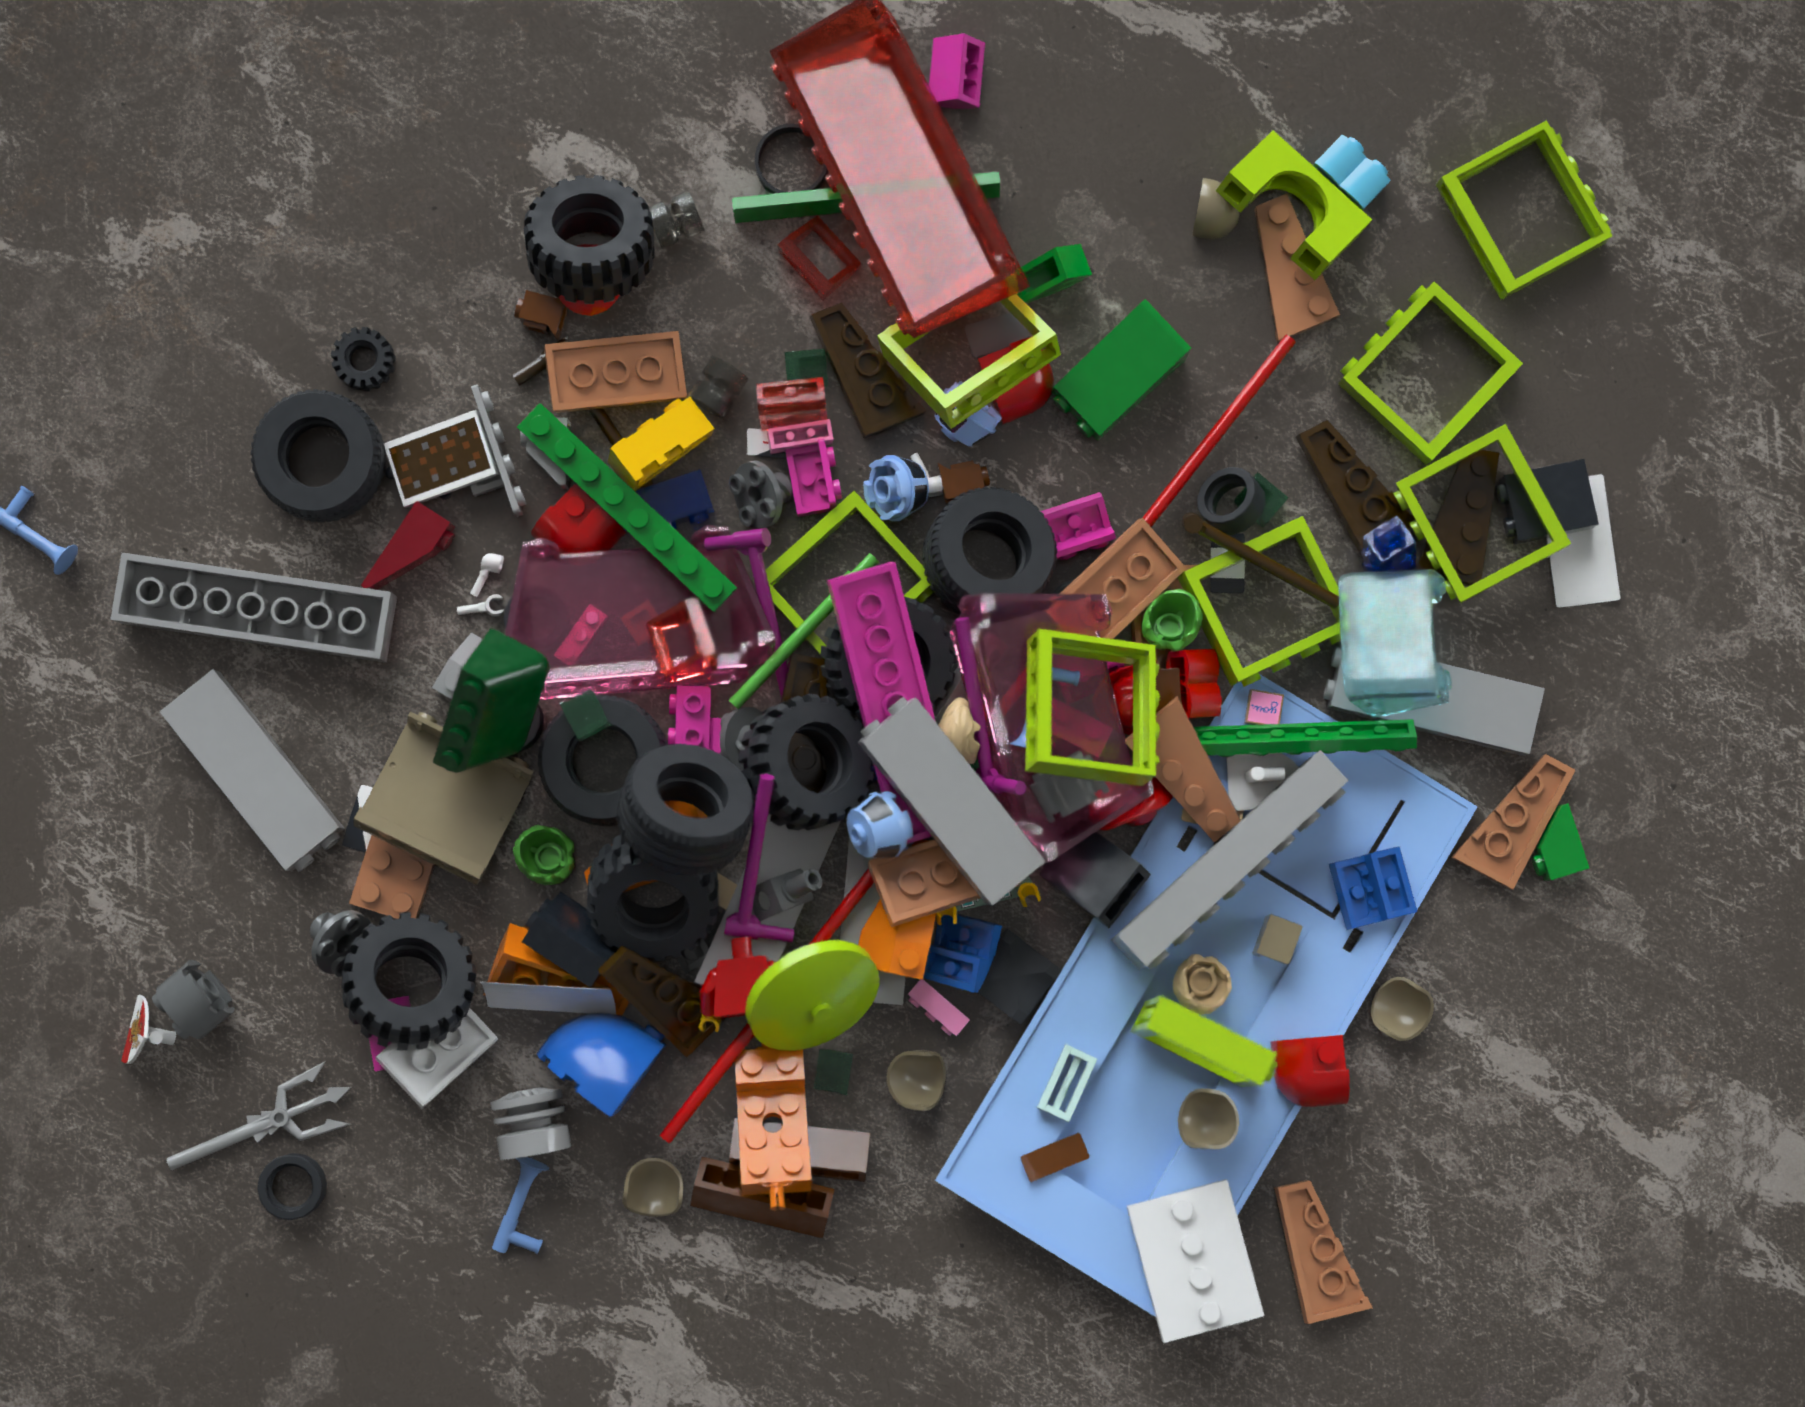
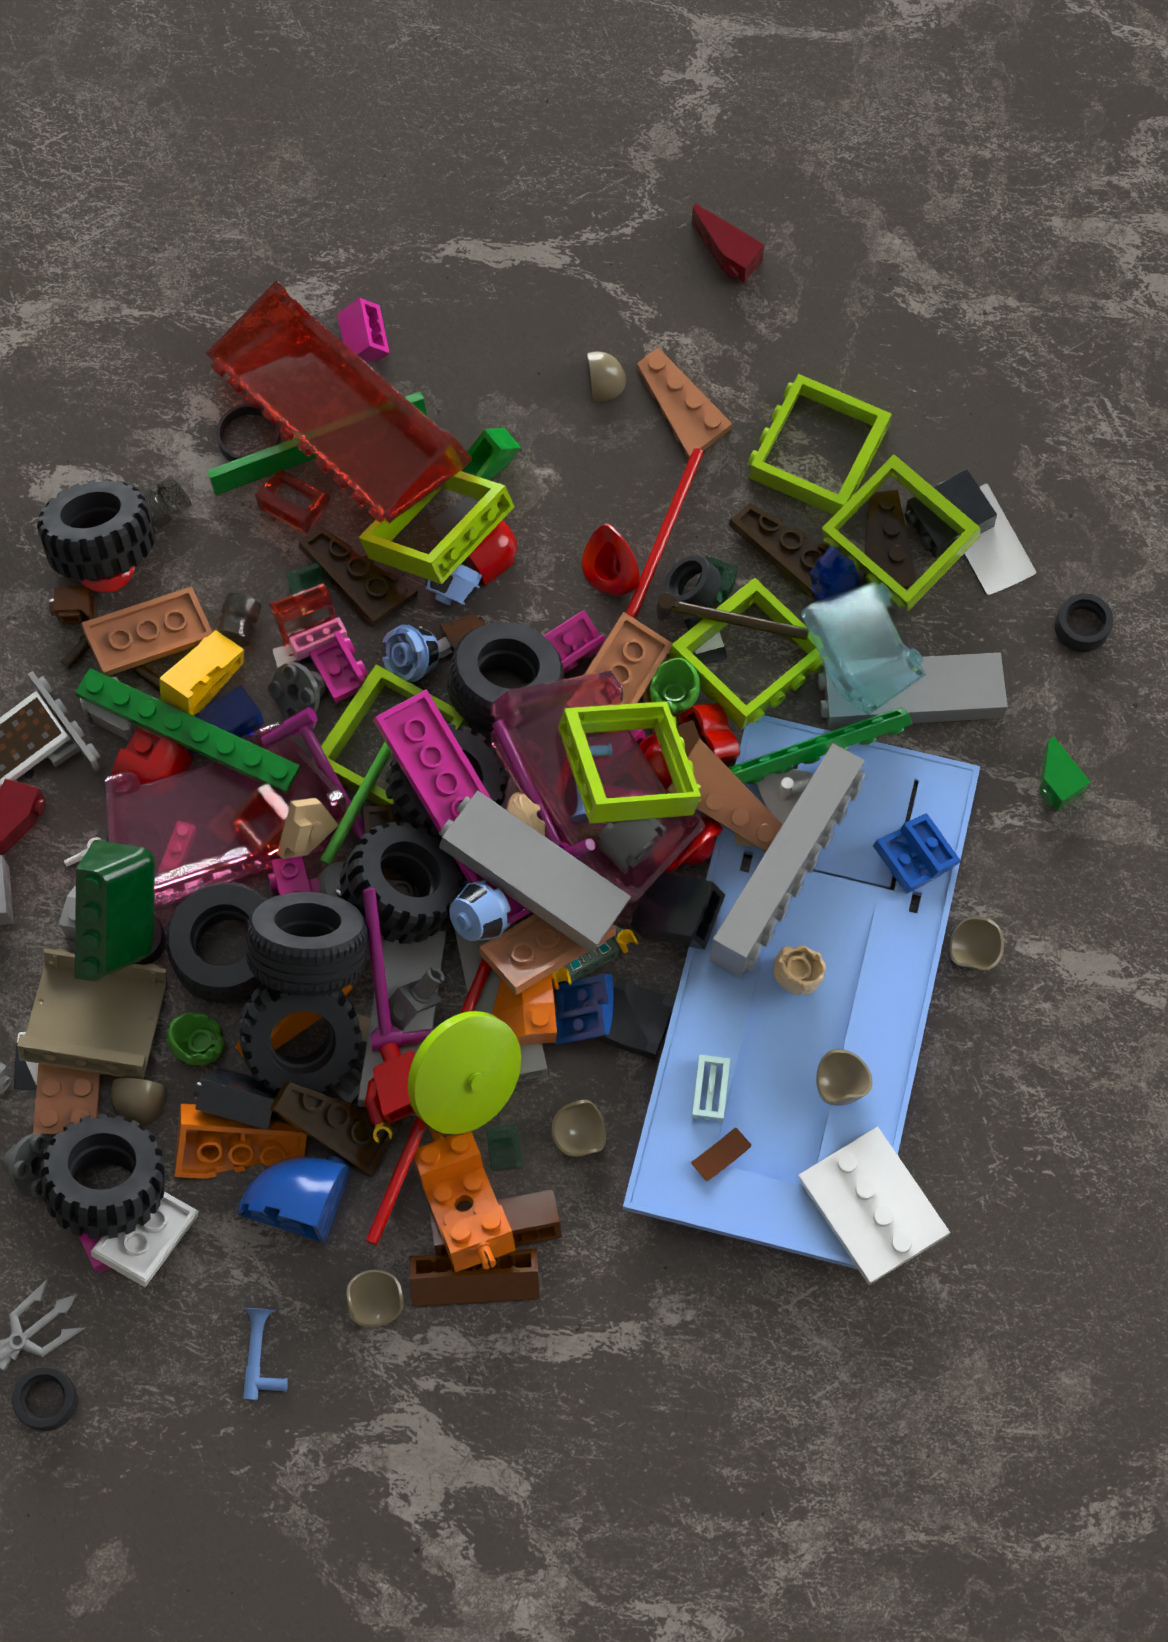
camera: 15 degrees left, 15 degrees down
(466, 903) = (138, 1099): none -> dark tan helmet
(490, 562) = (83, 815): white hand -> none
(530, 1123) = (245, 1266): light grey wheel -> none
(549, 998) = (232, 1157): white sticker -> none
(585, 715) = (198, 901): clear green panel -> none
(721, 665) = (305, 828): none -> tan plate
(938, 1008) = (579, 1066): bright pink piece -> none
(1120, 371) = (569, 510): green slope -> none
(1148, 445) = (610, 562): none -> red hat
(1205, 1043) = (821, 987): lime window -> none
(1263, 707) = (774, 737): bright pink tile -> none
(1277, 939) = (850, 912): dark tan panel -> none
(1280, 167) = (643, 328): lime arch -> none
(1312, 1070) = (918, 1013): red brick -> none
(1320, 1268) = (984, 1186): nougat wing -> none
(1353, 172) = (704, 318): medium azure brick -> none
(1410, 92) = (731, 248): none -> dark red slope
(1478, 237) = (821, 334): lime window -> none
(1514, 827) = (1015, 779): nougat wing -> none
(1676, 668) = (1089, 602): none -> black tyre

